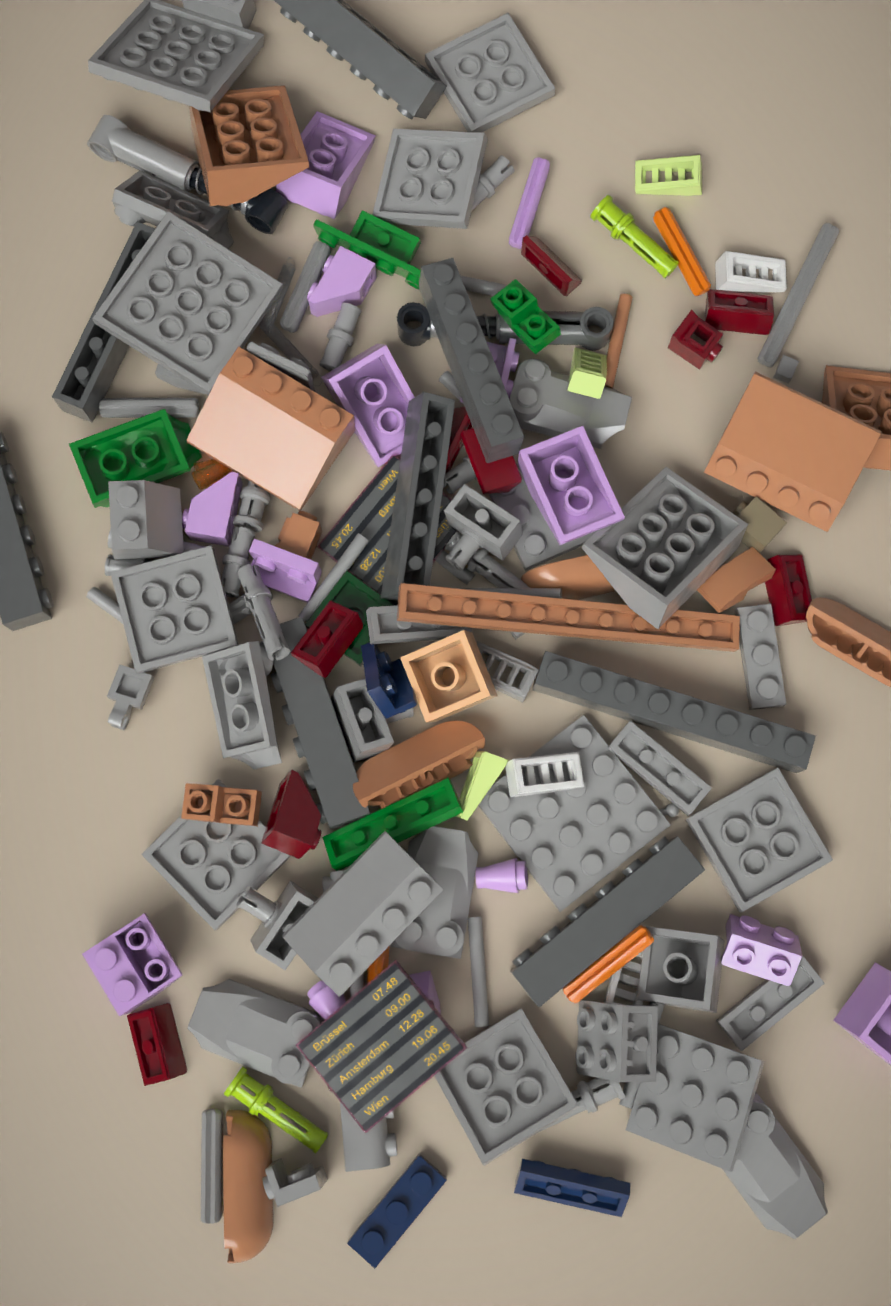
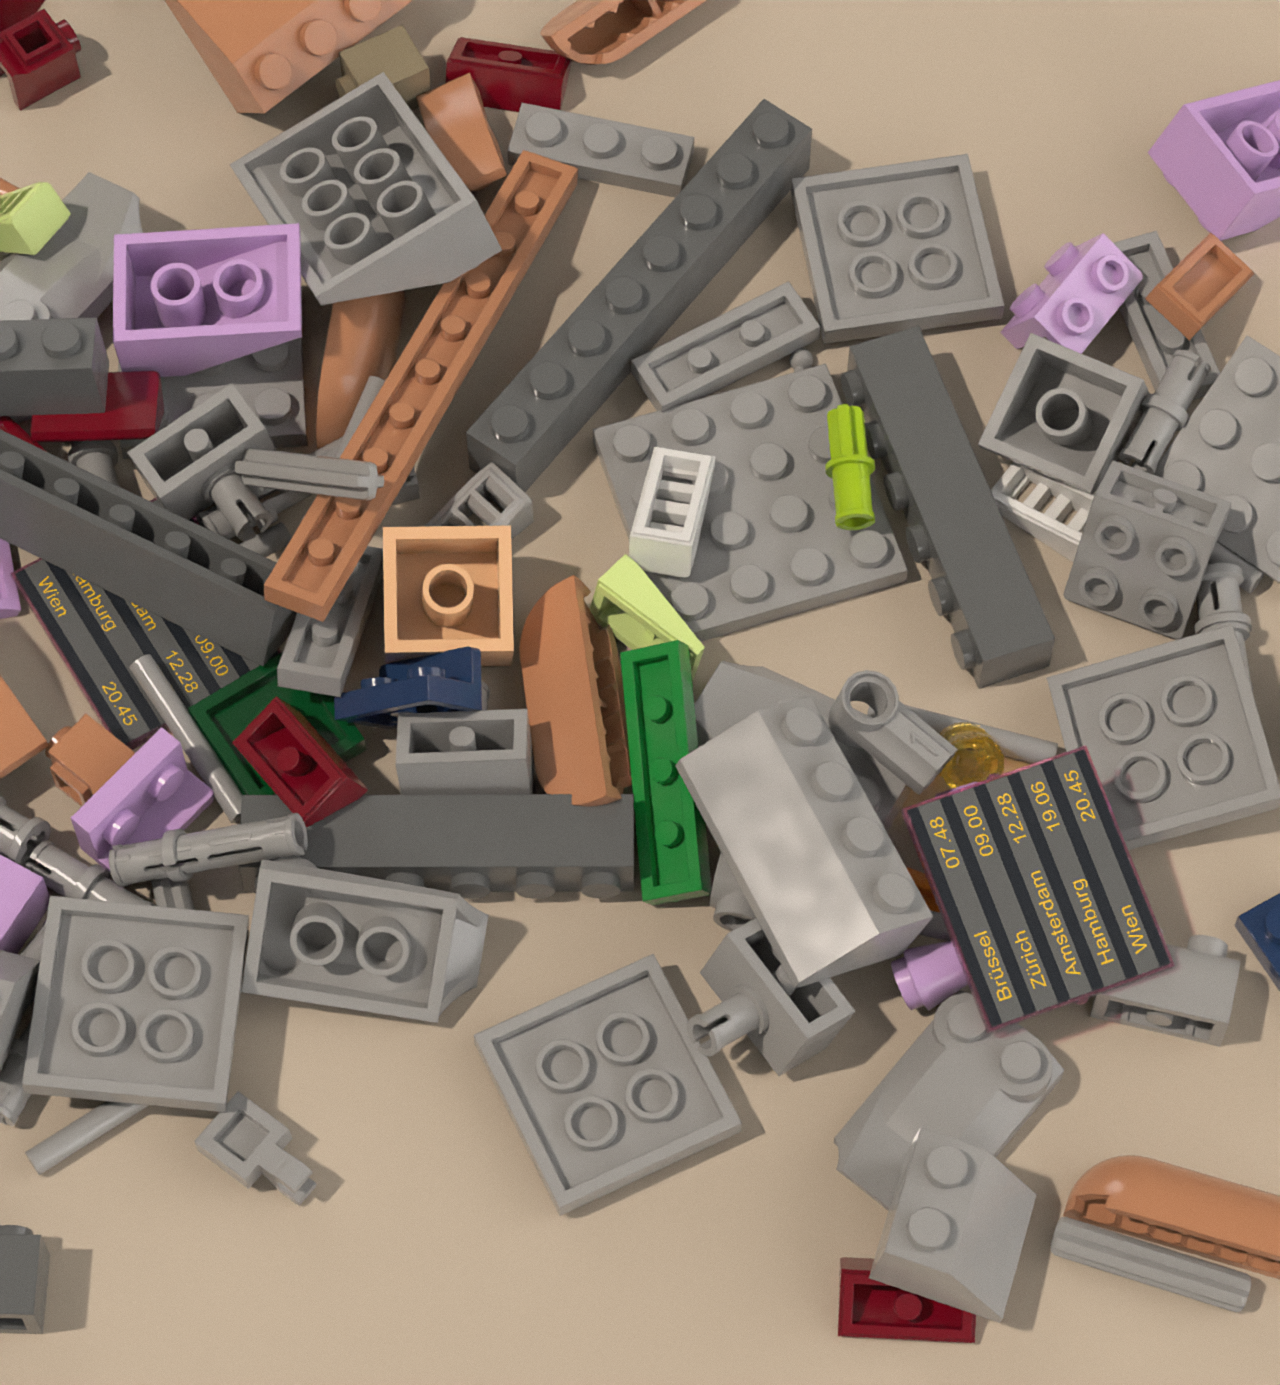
camera: 70 degrees left, 15 degrees down
(132, 965) = (754, 1275): lavender slope -> none
(182, 1060) = (954, 1226): none -> light grey slope
(221, 804) = (524, 1034): nougat slope -> none
(292, 1186) = (1220, 1125): light grey bracket -> none
(293, 819) = (591, 926): dark red slope -> none
(314, 1135) = (1065, 1140): lime pin -> none
(442, 940) = (894, 736): none -> light grey piece
(448, 979) = (972, 764): none -> clear yellow wheel
(476, 581) = (309, 474): none -> light grey axle
(503, 876) = (817, 635): lavender cone -> none
(603, 861) = (850, 468): none -> lime axle
(608, 964) = (1020, 518): orange axle -> none
(704, 1025) = (1164, 411): none -> light grey pin
(796, 1019) = (1199, 286): none -> nougat tile

